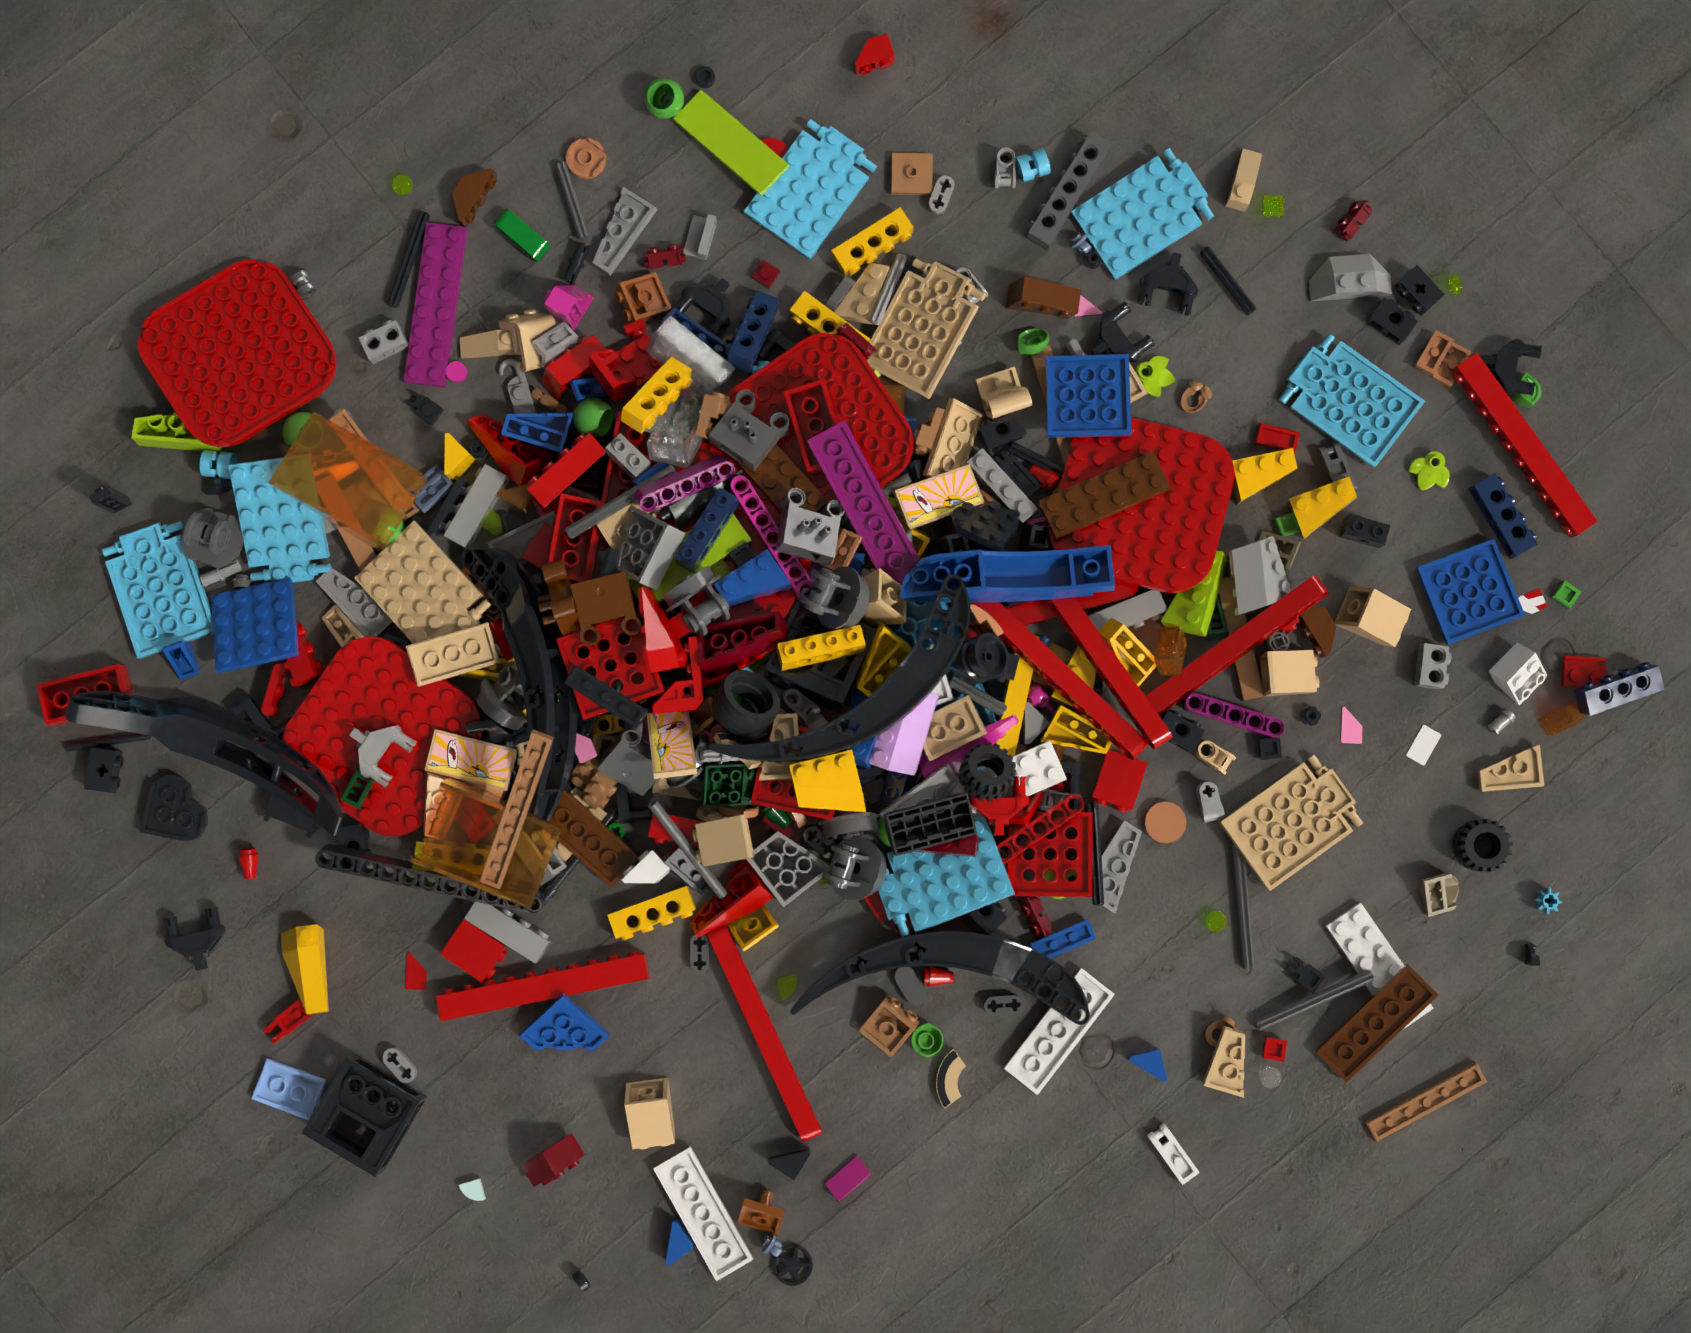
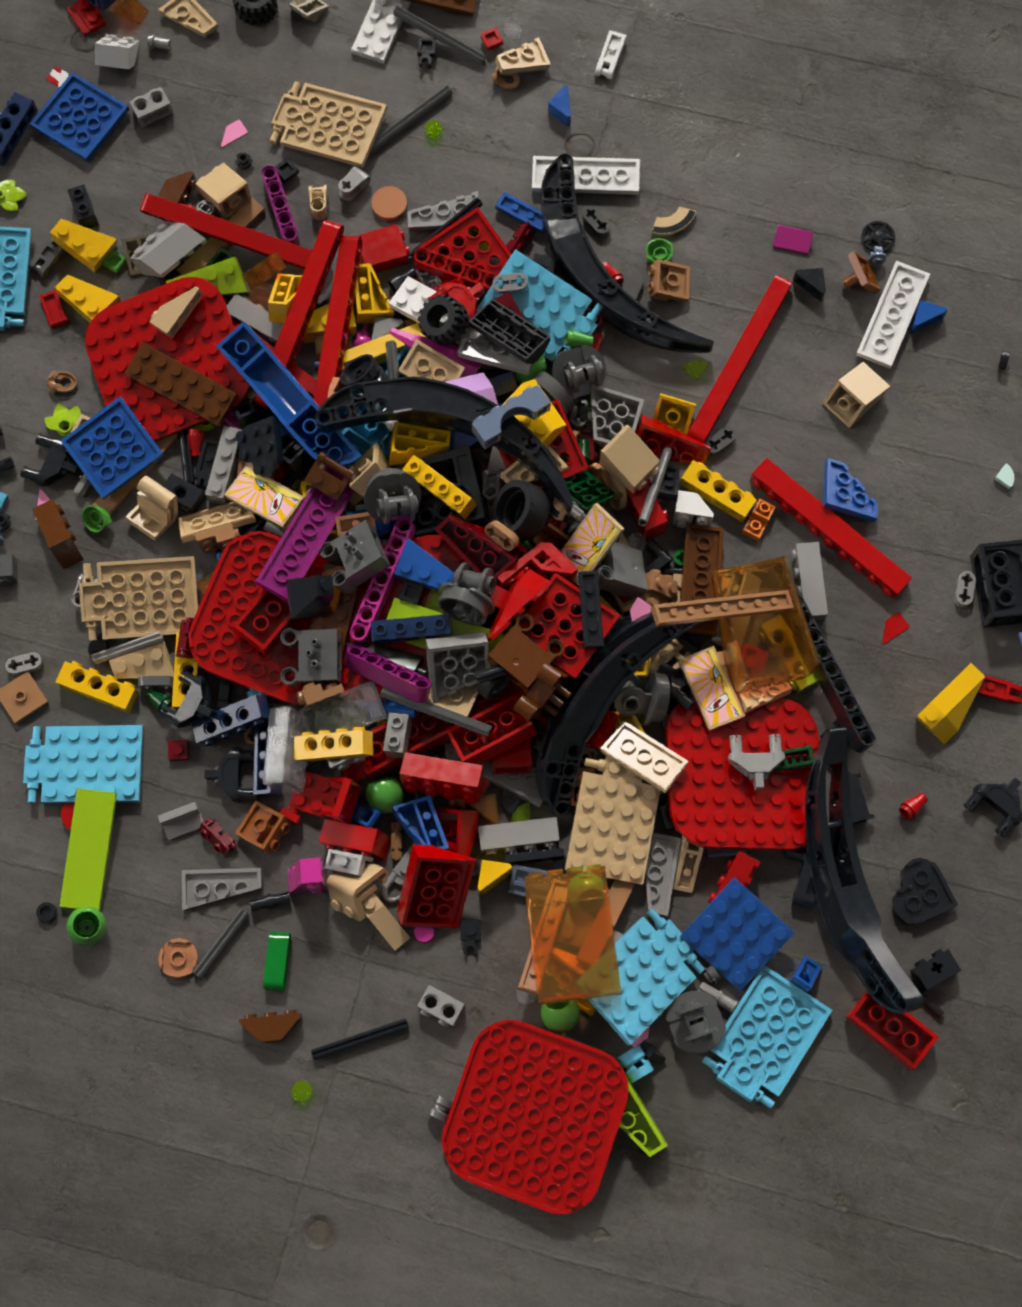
camera: 125 degrees left, 10 degrees down
(109, 499) = (728, 1124): black plate -> none
(274, 690) = (774, 883): red plate -> none
(435, 305) = (381, 989): magenta plate -> none
(474, 951) = (844, 593): red brick -> none
(478, 399) = (435, 887): none -> red slope
(552, 1161) = (942, 431): dark red brick -> none
(600, 929) = (758, 519): none -> orange slope
(730, 667) = (501, 535): none -> medium nougat beam
(788, 309) = (195, 703): none -> black connector
(801, 461) = (309, 596): none -> black slope
(821, 286) = (158, 699): none -> dark green cone
(828, 719) = (530, 403): none -> sand blue arch
(885, 887) = (576, 339): none -> bright green cone
(901, 551) = (326, 482): none -> reddish brown plate
(978, 860) = (510, 278): none -> light grey beam
(1175, 527) = (173, 314): none -> tan slope
(1192, 731) = (312, 225): black brick -> none
(1372, 615) = (142, 165): tan slope -> none
(1423, 745) = (211, 81): white sticker -> none
(1566, 594) = (38, 59): bright green tile -> none

